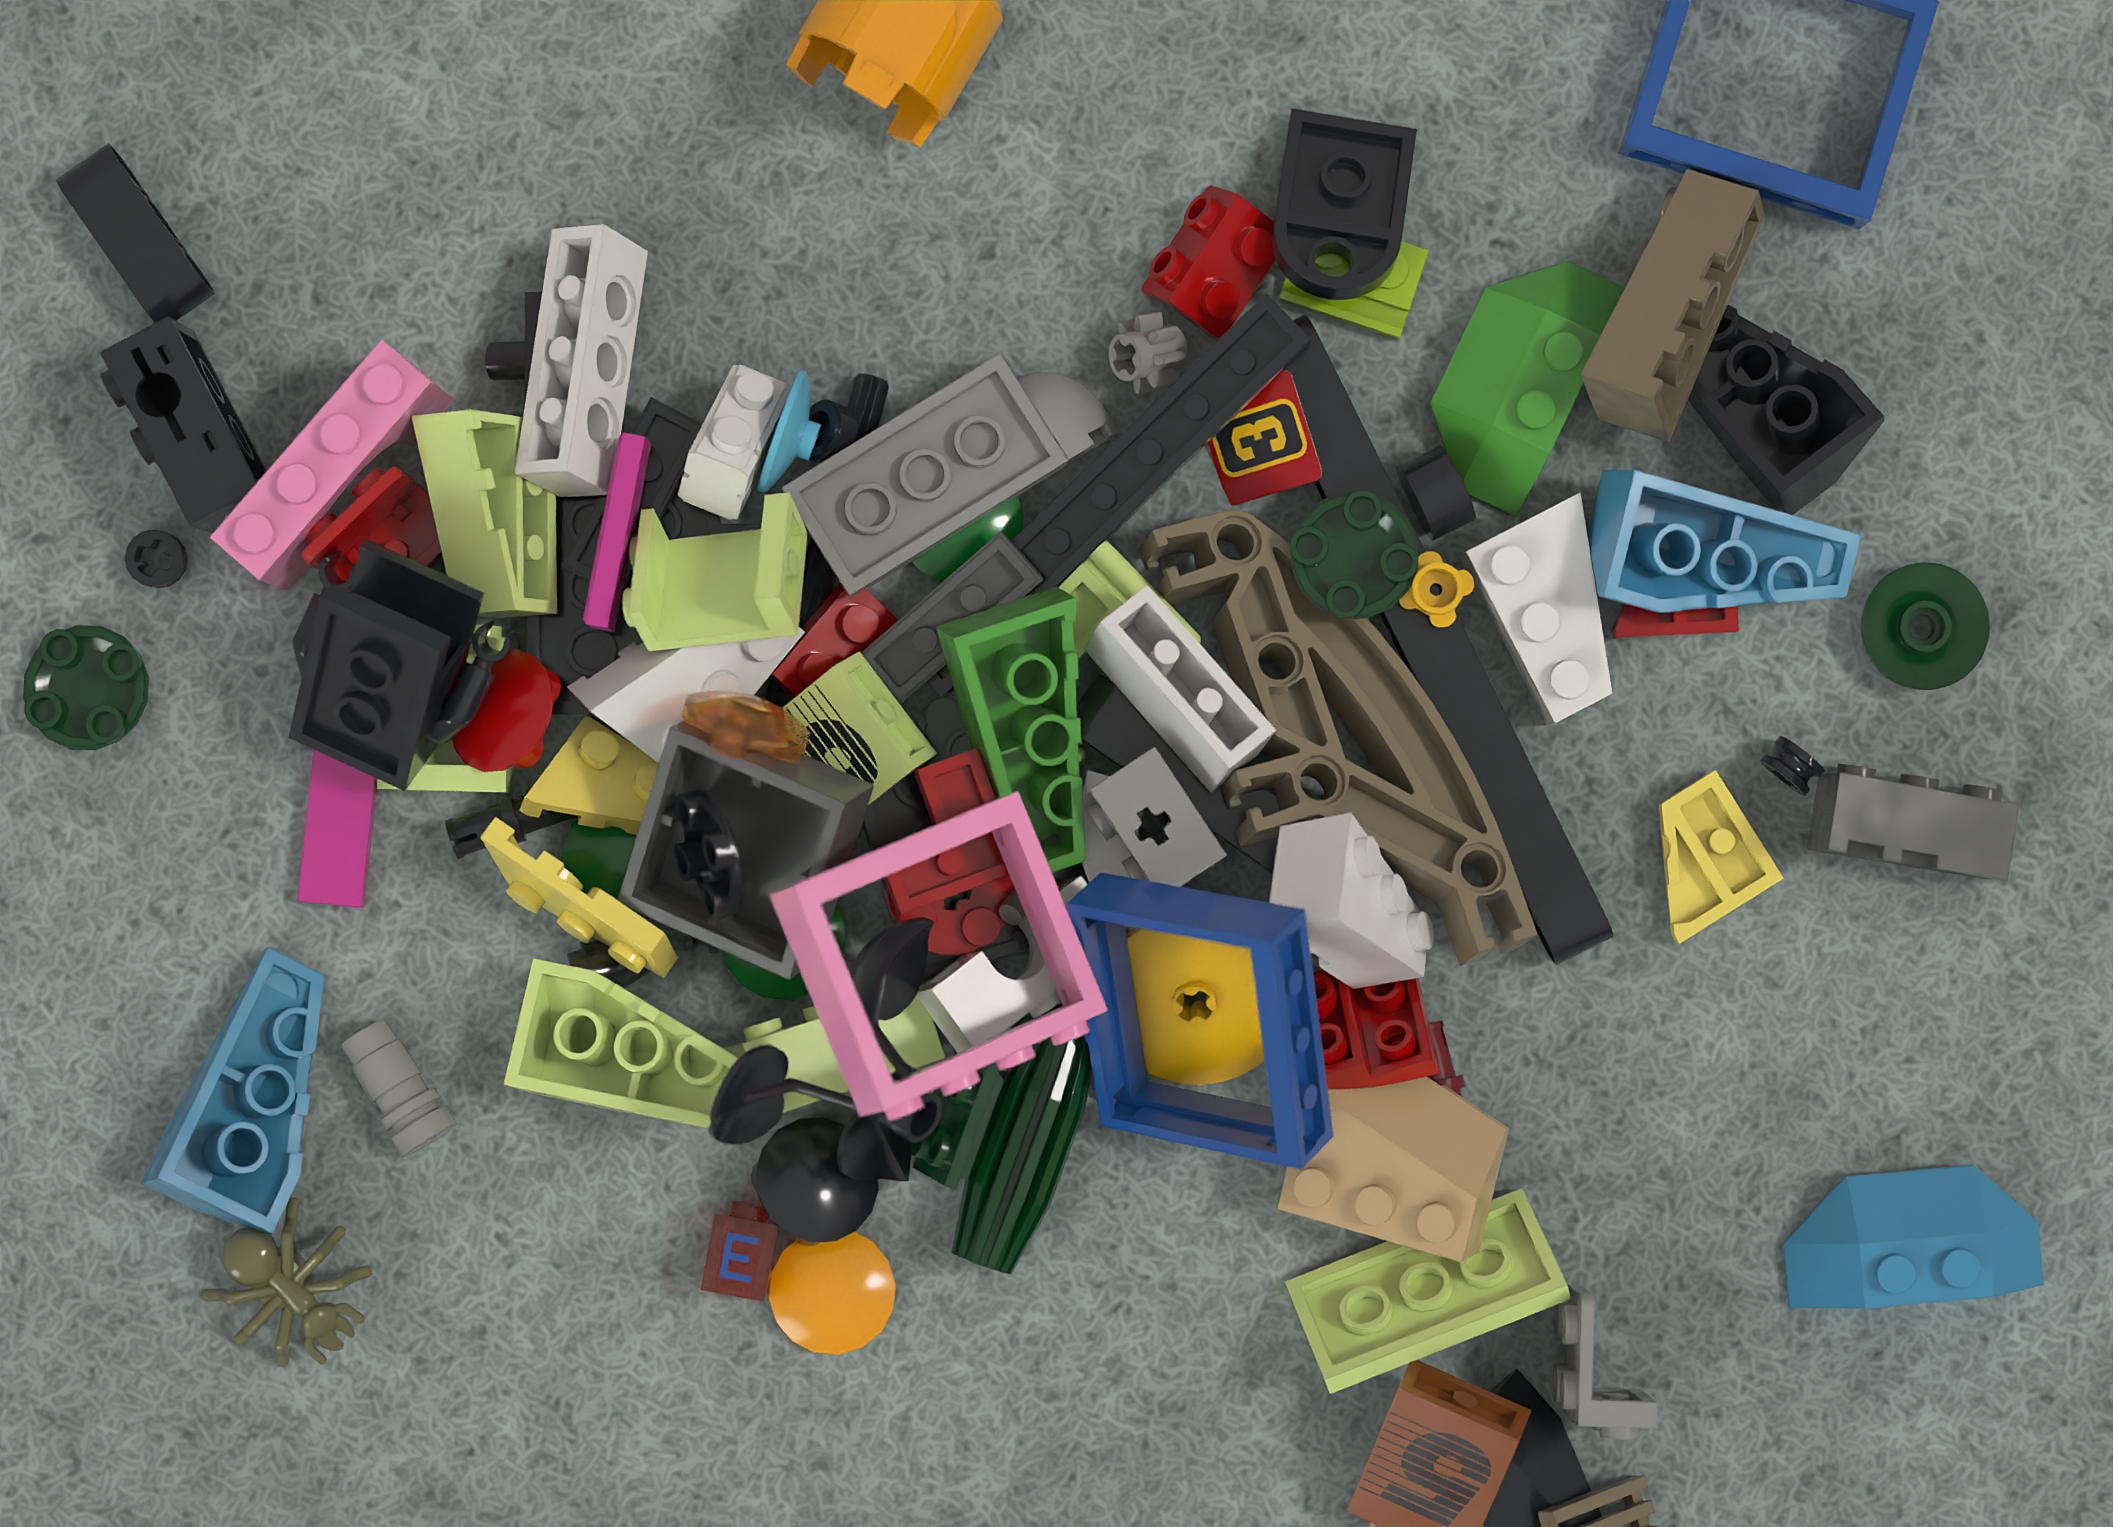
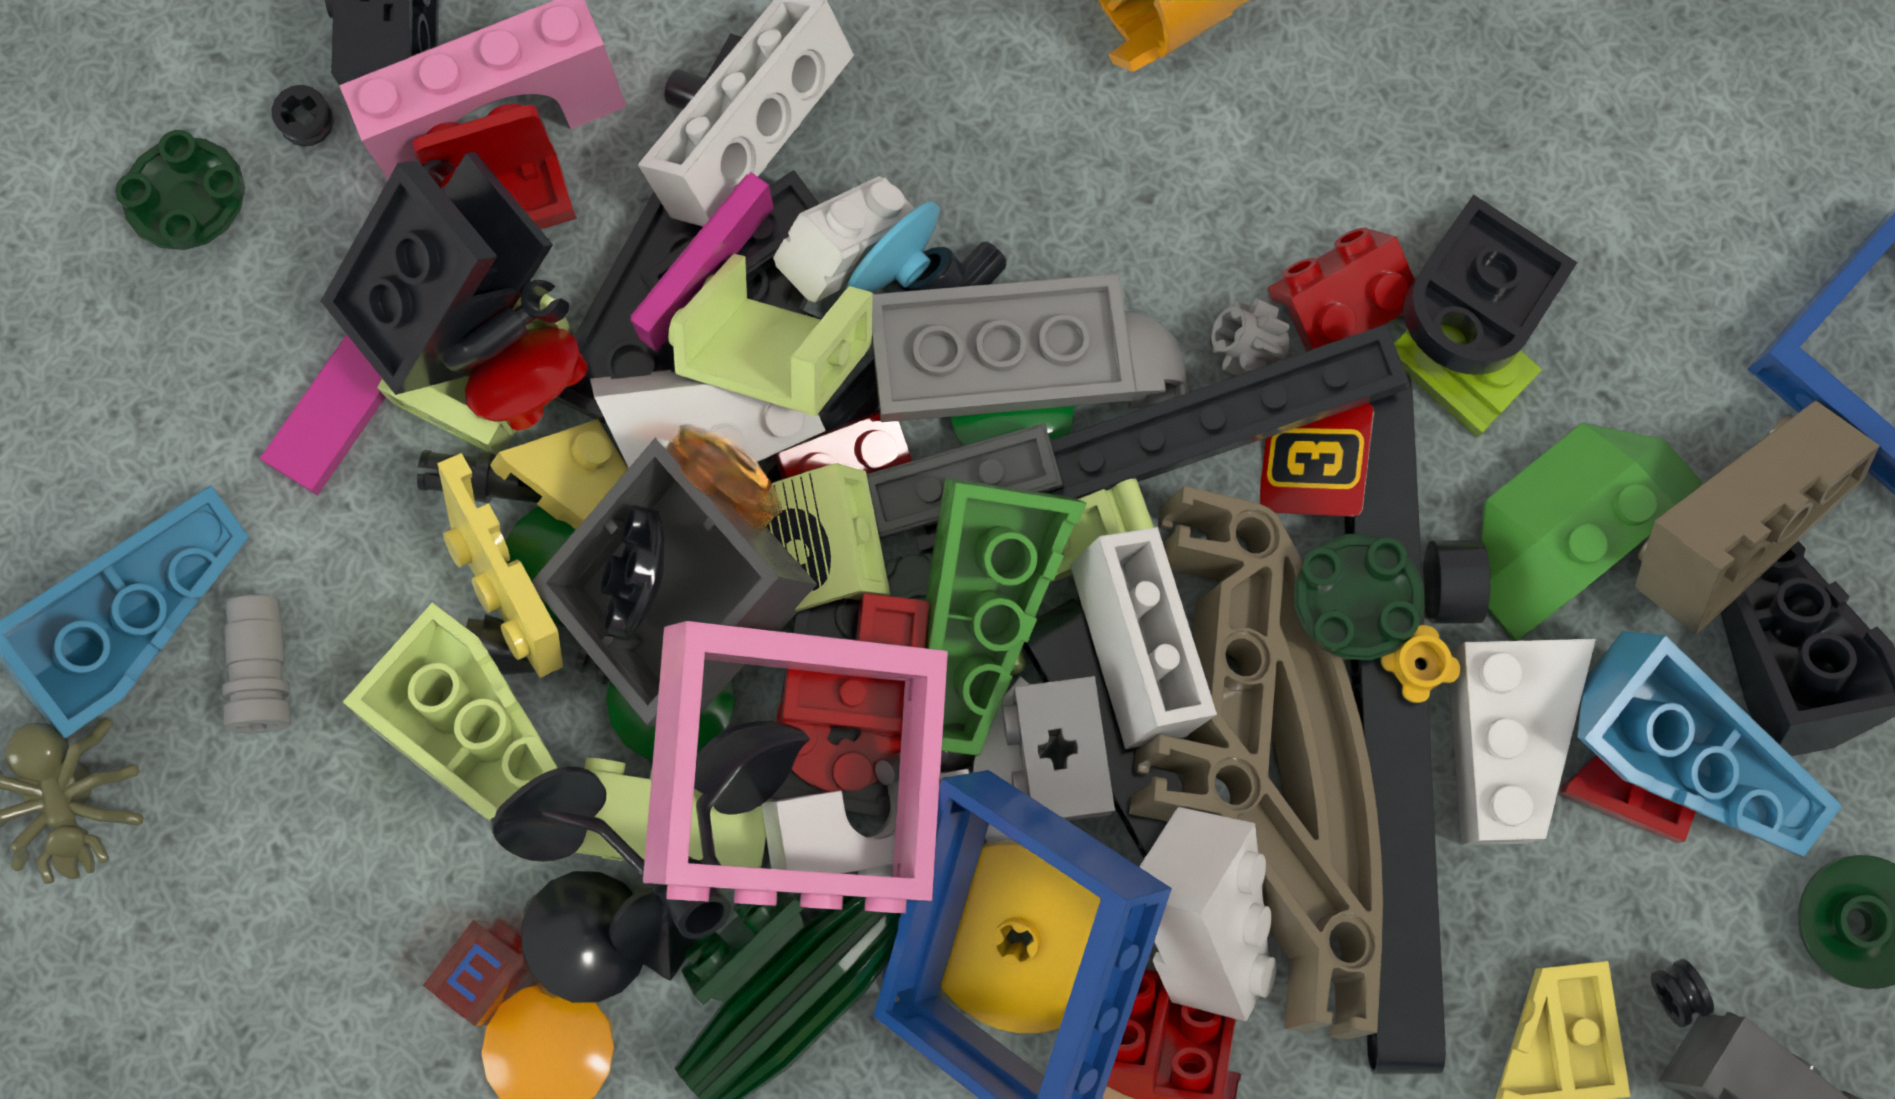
camera: 25 degrees right, 10 degrees down
(488, 520) = (596, 197): yellowish green wedge -> none

